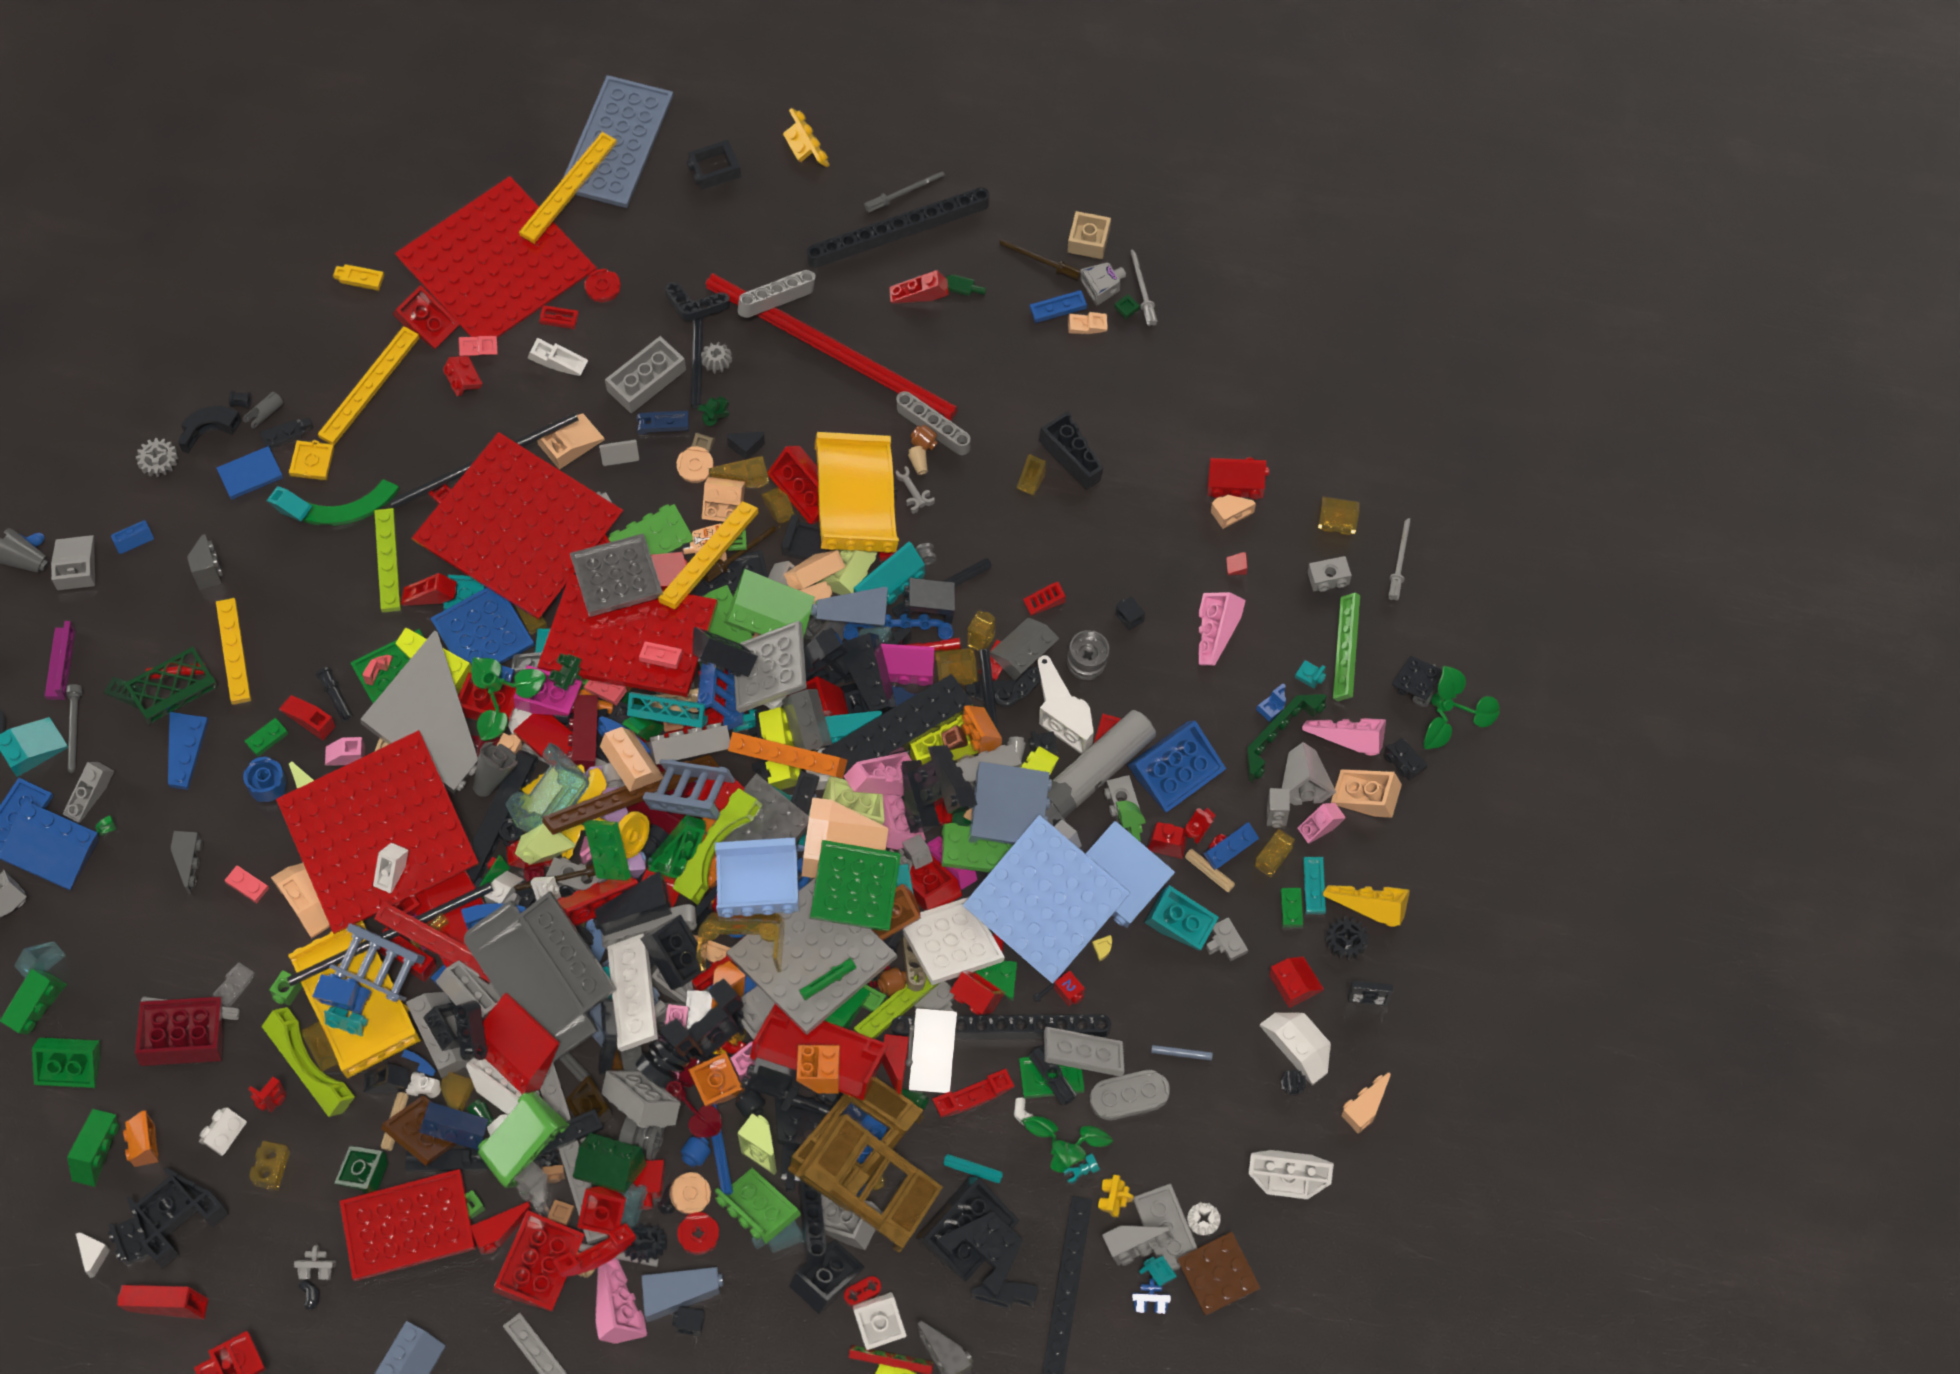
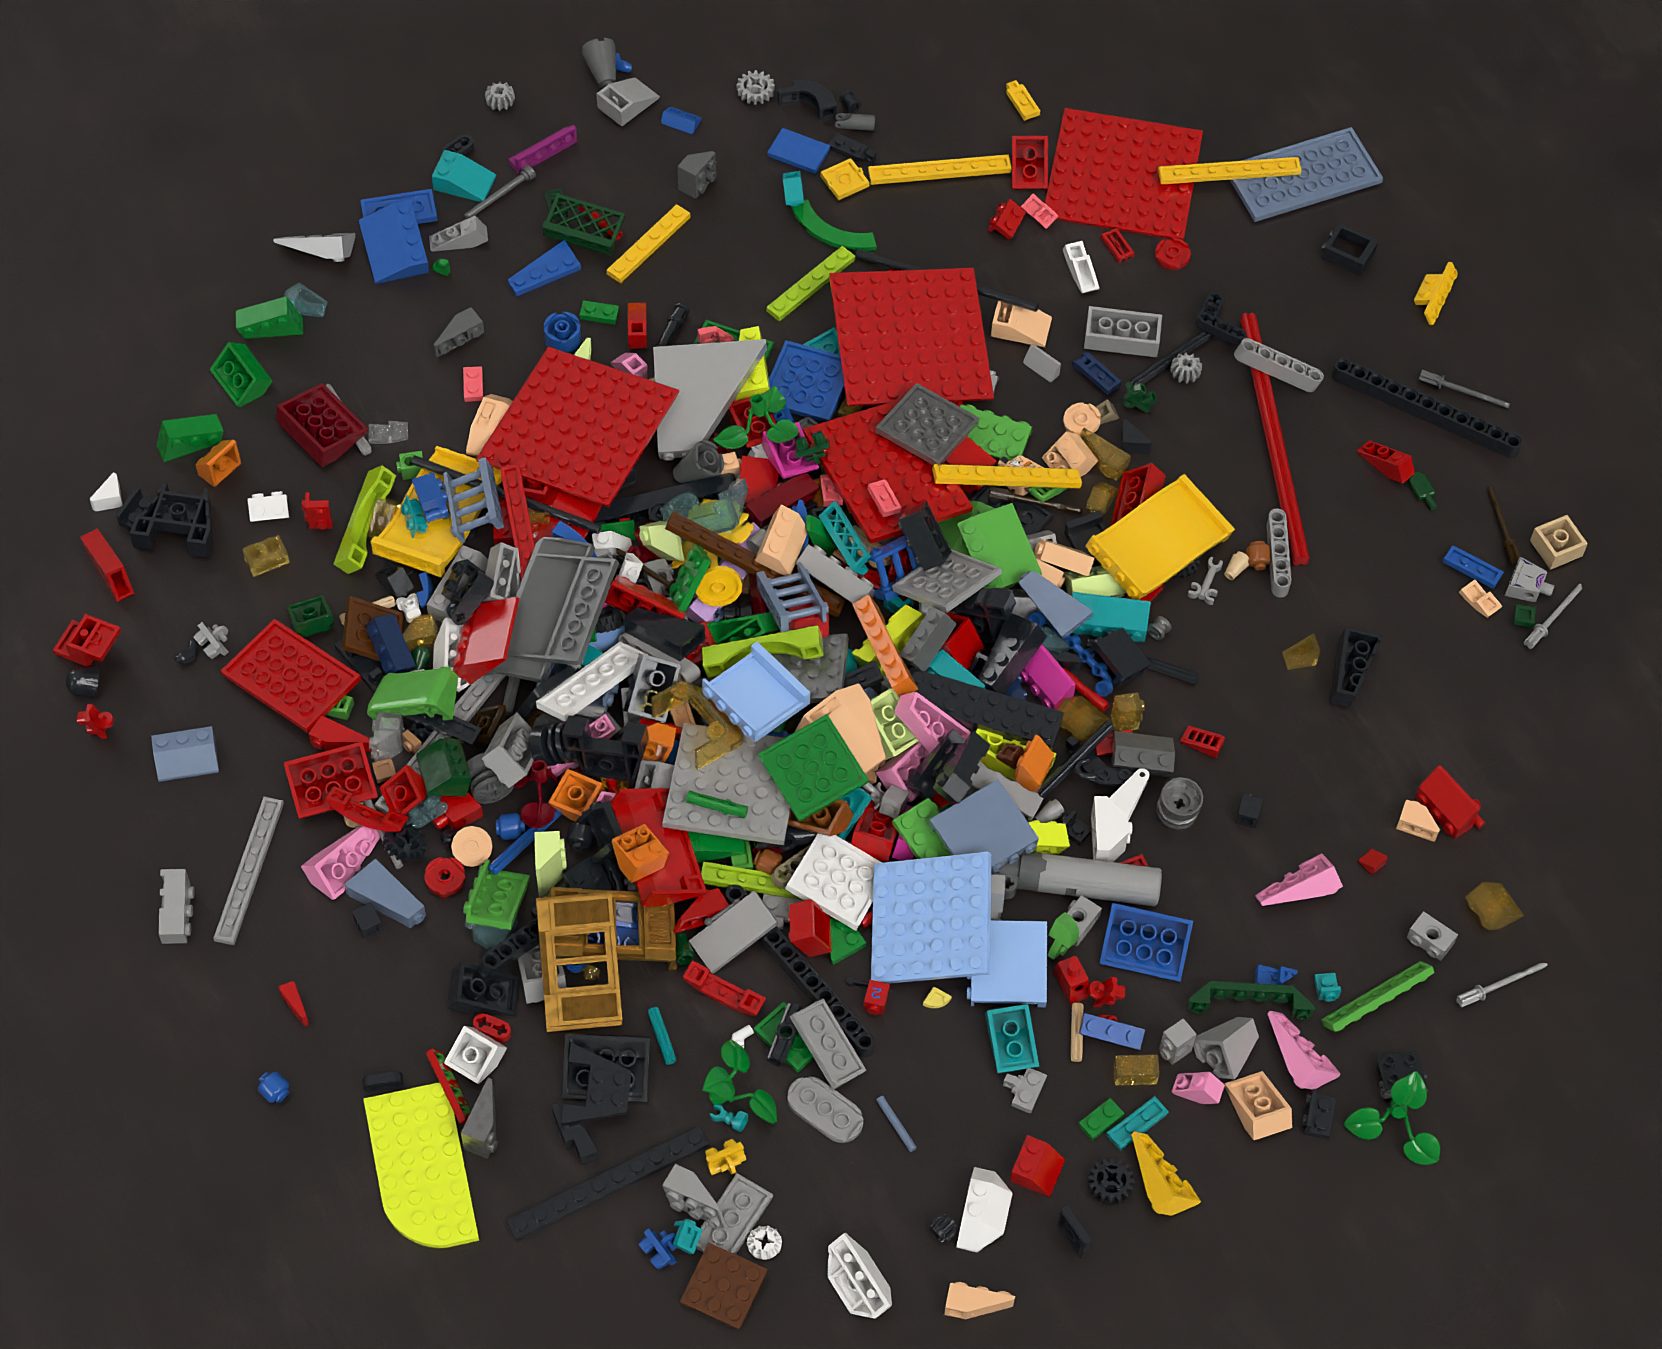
camera: 50 degrees right, 5 degrees down
(390, 867) = (553, 450): white slope -> none
(430, 590) = (808, 325): red slope -> none

